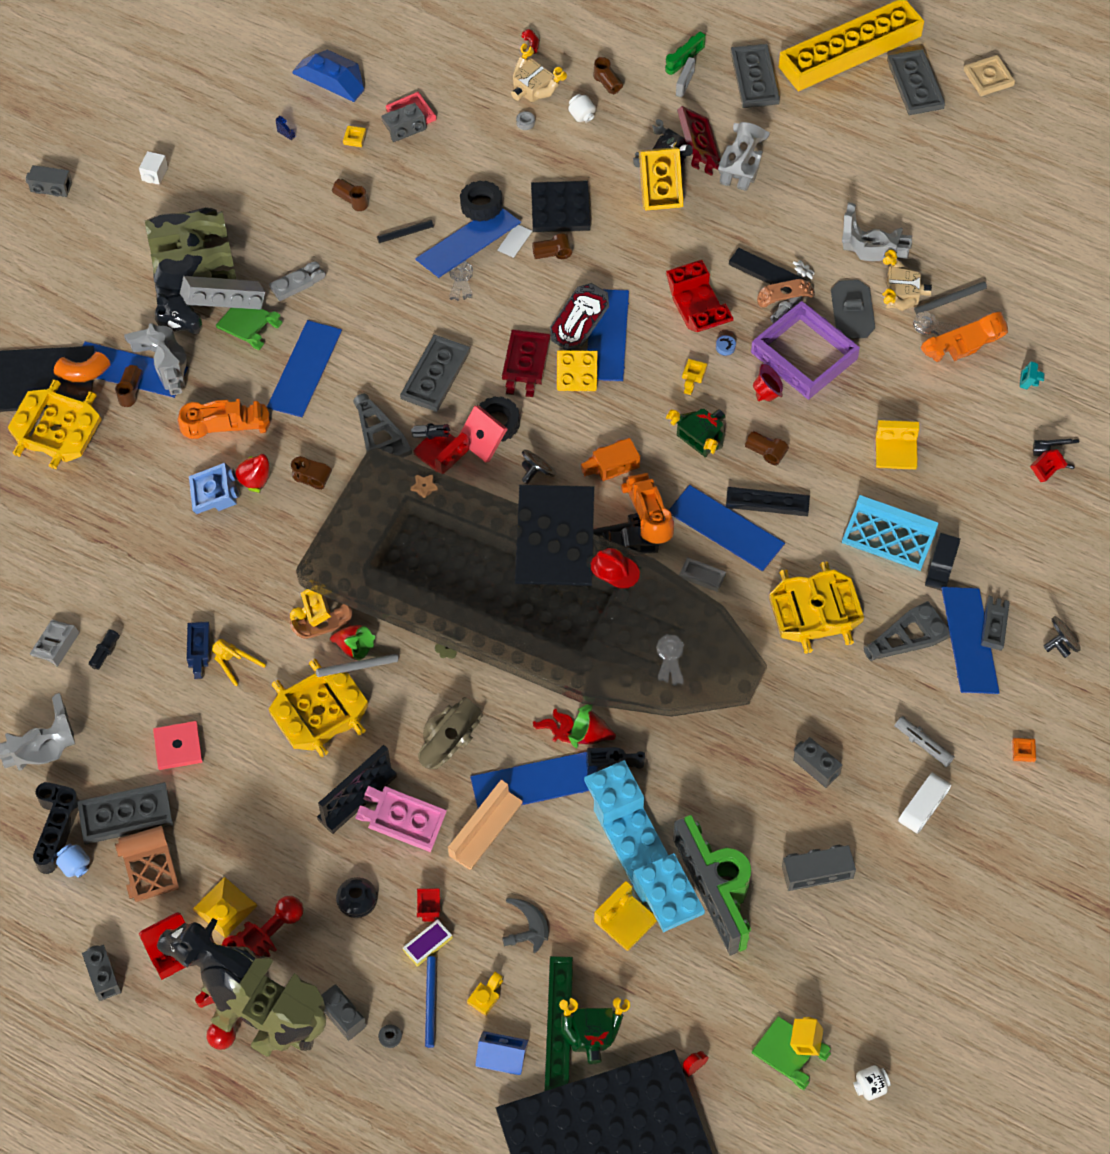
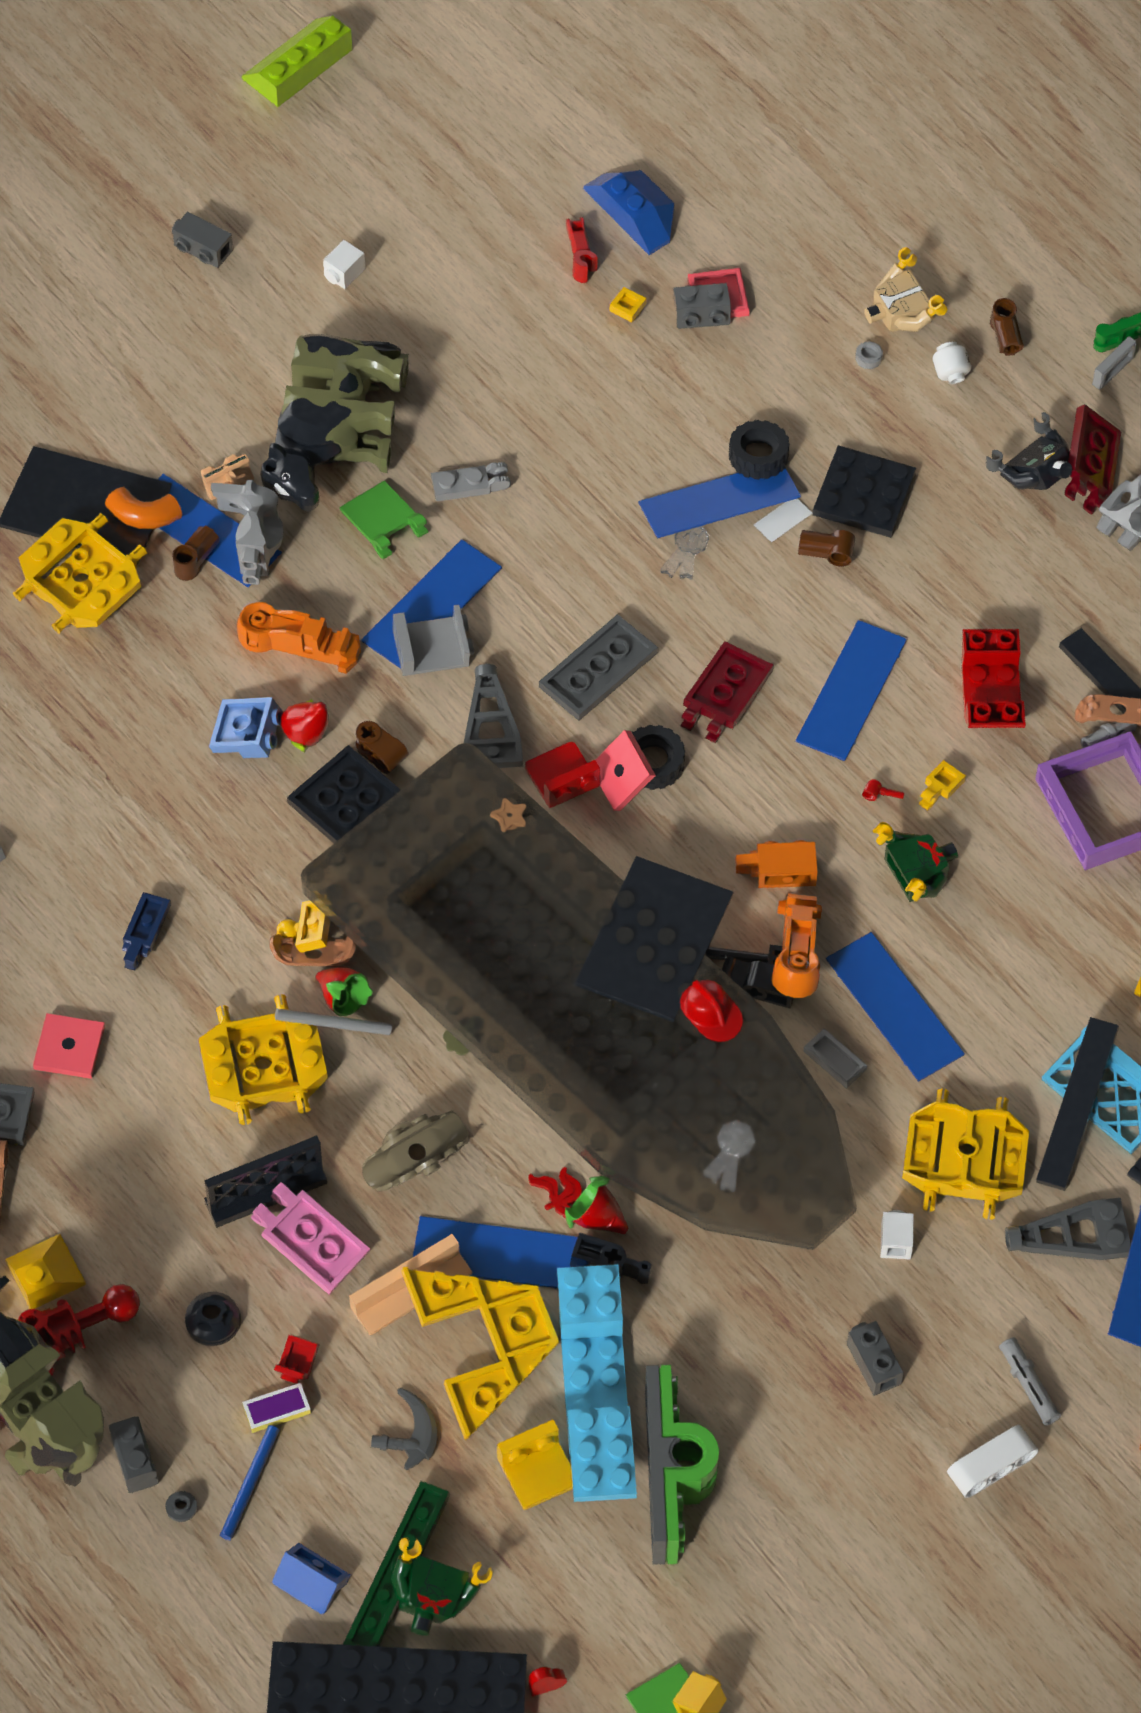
camera: 20 degrees right, 0 degrees up
(68, 47) = (300, 59): none -> lime slope
(104, 649) = (26, 890): black axle -> none
(133, 323) = (233, 471): none -> light nougat hips
(222, 292) = (360, 467): light grey brick -> none
(226, 651) = (177, 945): yellow plant -> none
(283, 129) = (537, 264): clear blue tile -> none
(299, 512) = (342, 794): none -> black plate
(313, 116) = (583, 257): none -> red piece
(317, 393) = (432, 643): none -> light grey panel
(352, 194) = (590, 384): reddish brown piece -> none
(405, 231) = (640, 459): black bar -> none
(430, 431) = (557, 744): black axle -> none
(485, 996) = (319, 1501): yellow plate -> none
(533, 39) = (929, 243): red arm -> none
(538, 464) = (678, 835): shield -> none
(568, 826) = (516, 1326): none -> yellow wing
(576, 370) = (786, 725): yellow bracket -> none
(579, 316) = (821, 653): shield -> none
(651, 391) = (874, 788): none -> red hand
(661, 178) = (1010, 498): yellow brick -> none
(725, 345) = (1004, 758): medium blue tile -> none
(767, 384) = (1036, 830): red piece -> none
(767, 501) = (965, 990): black tile -> none
(771, 450) = (1000, 922): reddish brown piece -> none
(795, 676) = (896, 1235): none -> white brick
(818, 867) = (814, 1493): dark grey brick -> none
(875, 549) = (1077, 1104): none -> black tile

